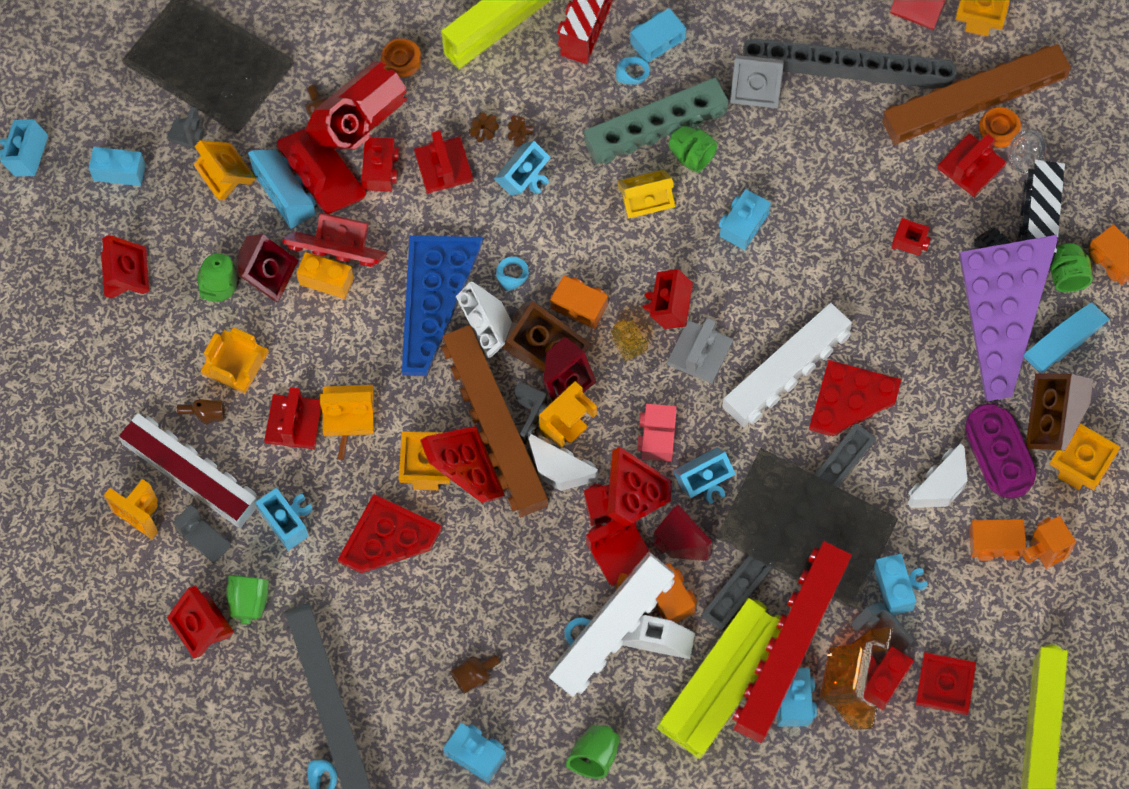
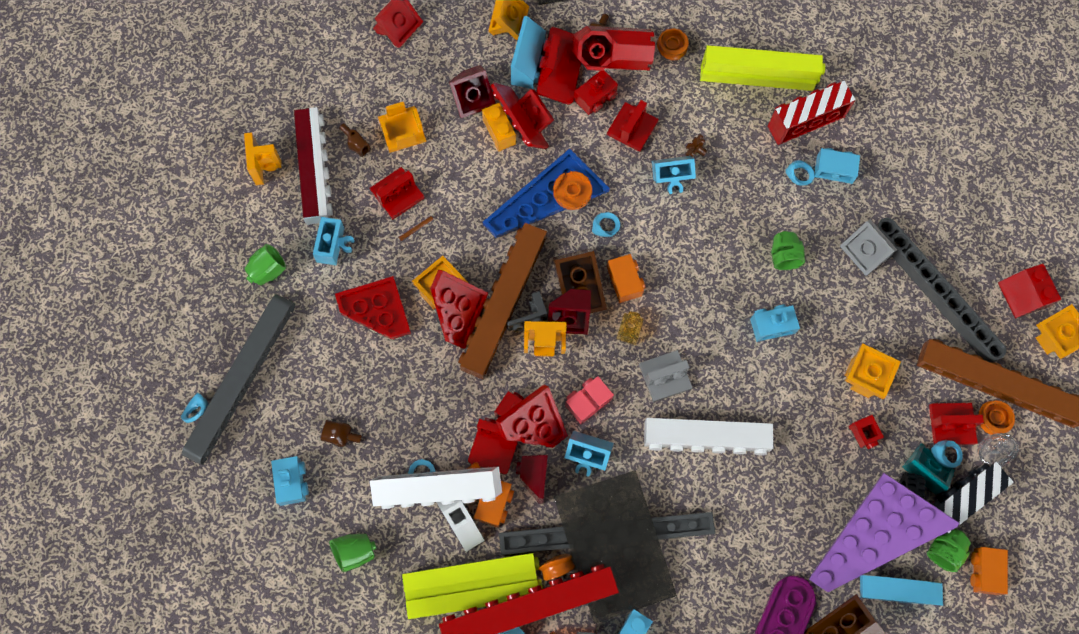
camera: 40 degrees right, 5 degrees up
(198, 621) = (228, 255): red bracket -> none
(200, 534) = (280, 206): dark grey bracket -> none
(217, 278) = (439, 72): bright green helmet -> none
(348, 410) = (431, 214): light orange bracket -> none
(452, 268) = (572, 190): none -> orange tile
(483, 126) = (677, 125): reddish brown plant -> none
(486, 317) = (561, 236): white slope -> none
(559, 466) = (512, 363): white slope -> none
(647, 193) = (731, 252): yellow bracket -> none
(663, 111) = (793, 212): sand green brick -> none
(670, 299) = (678, 328): red brick -> none
(778, 591) = (557, 567): none -> orange piece
(850, 397) = (727, 492): red plate -> none
(865, 184) = (871, 372): none -> light orange panel
(942, 482) = (728, 602): white slope -> none
(983, 198) = (938, 452): none -> medium azure piece
(984, 216) = (923, 463): none -> teal slope

